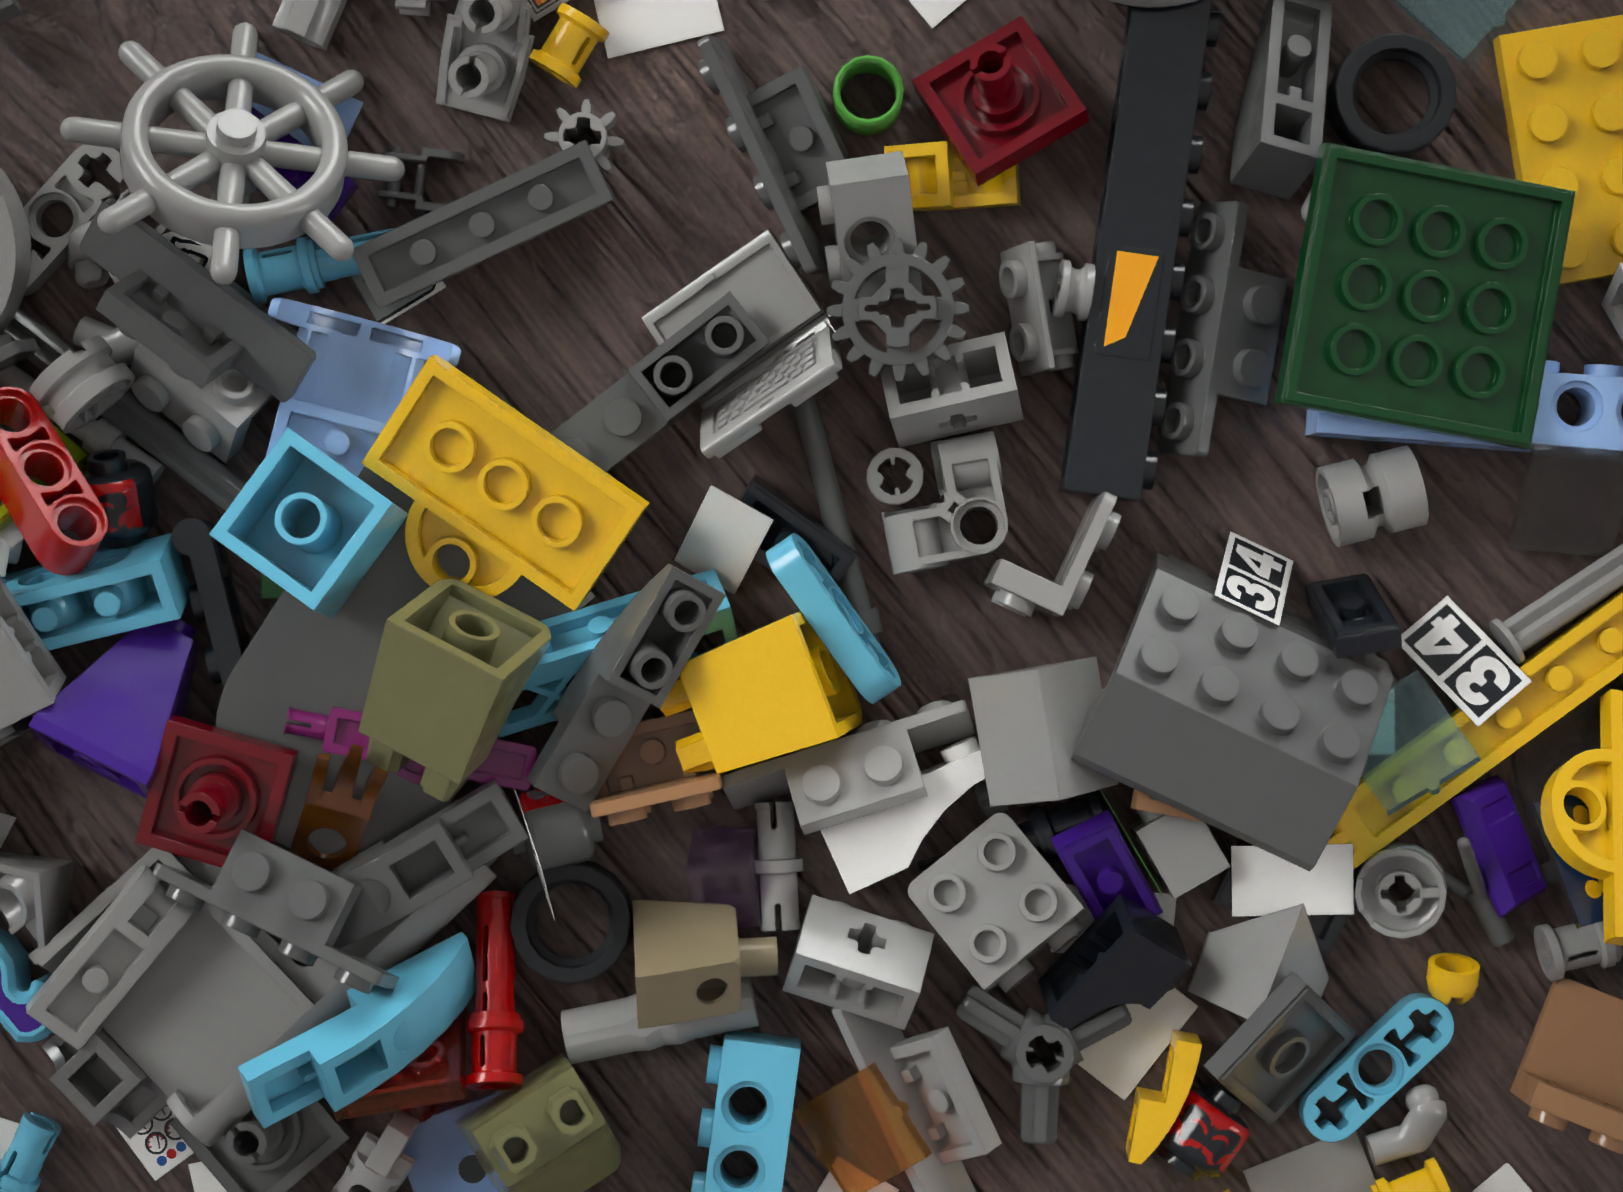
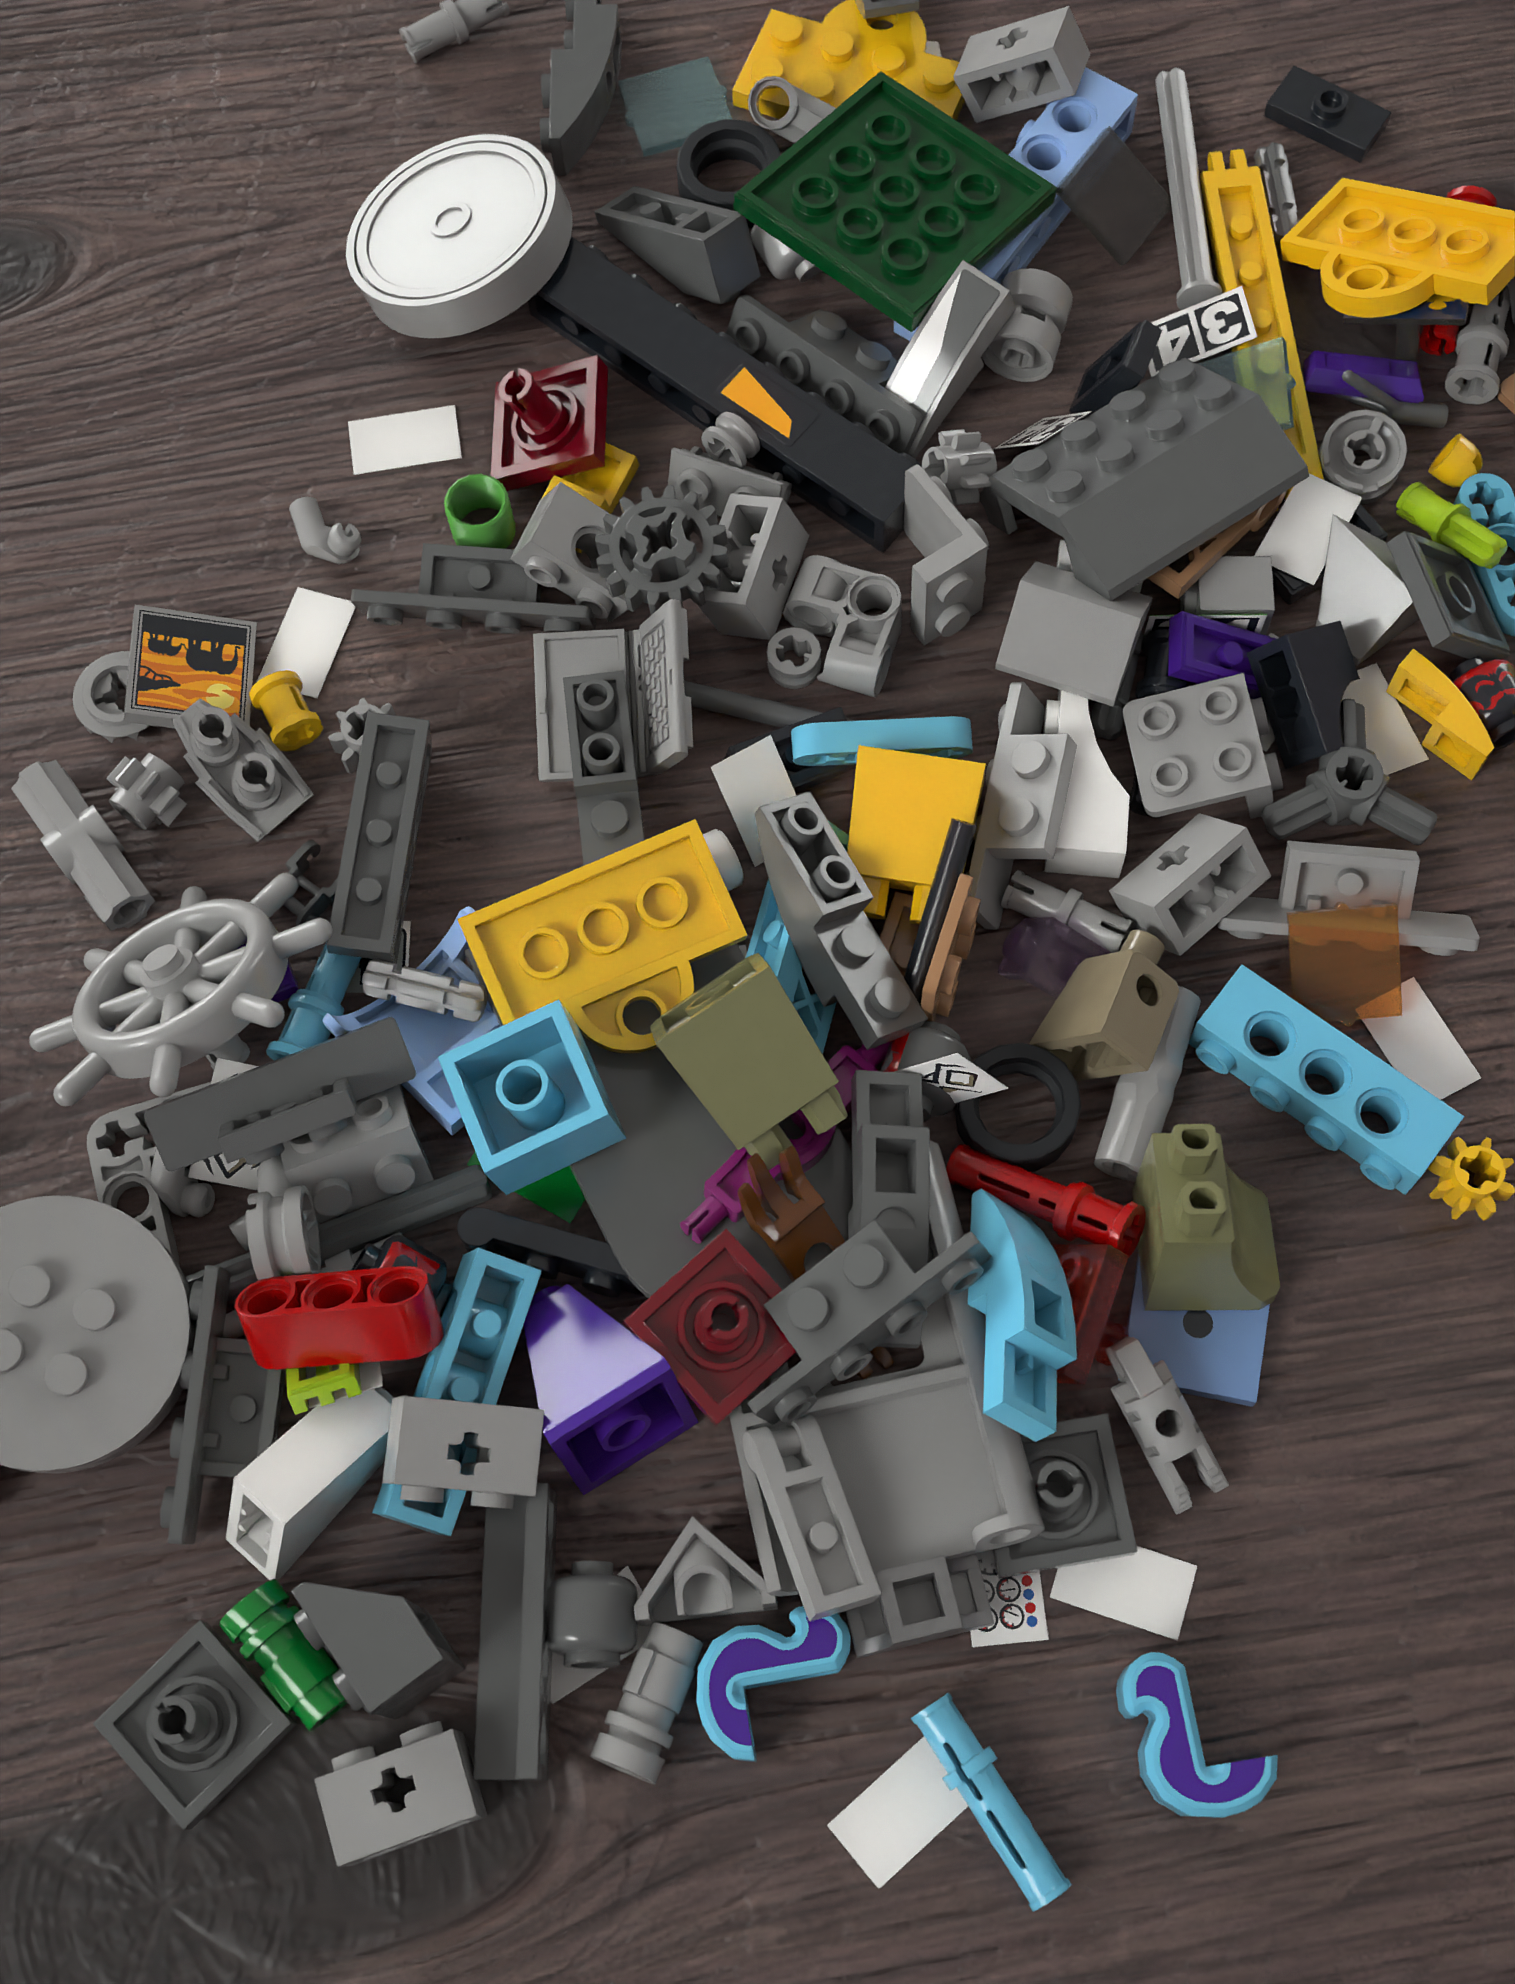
camera: 55 degrees left, 20 degrees down
(371, 354) = (424, 990): none -> light grey axle
(649, 533) = (725, 859): none -> white tile
(688, 767) = (941, 892): none -> black piece
(1159, 527) = (961, 464): none -> light grey gear
(1288, 442) = (949, 347): none -> slope
(1369, 1011) = (1451, 525): none -> lime axle
(1494, 138) = (803, 112): none -> light grey piece

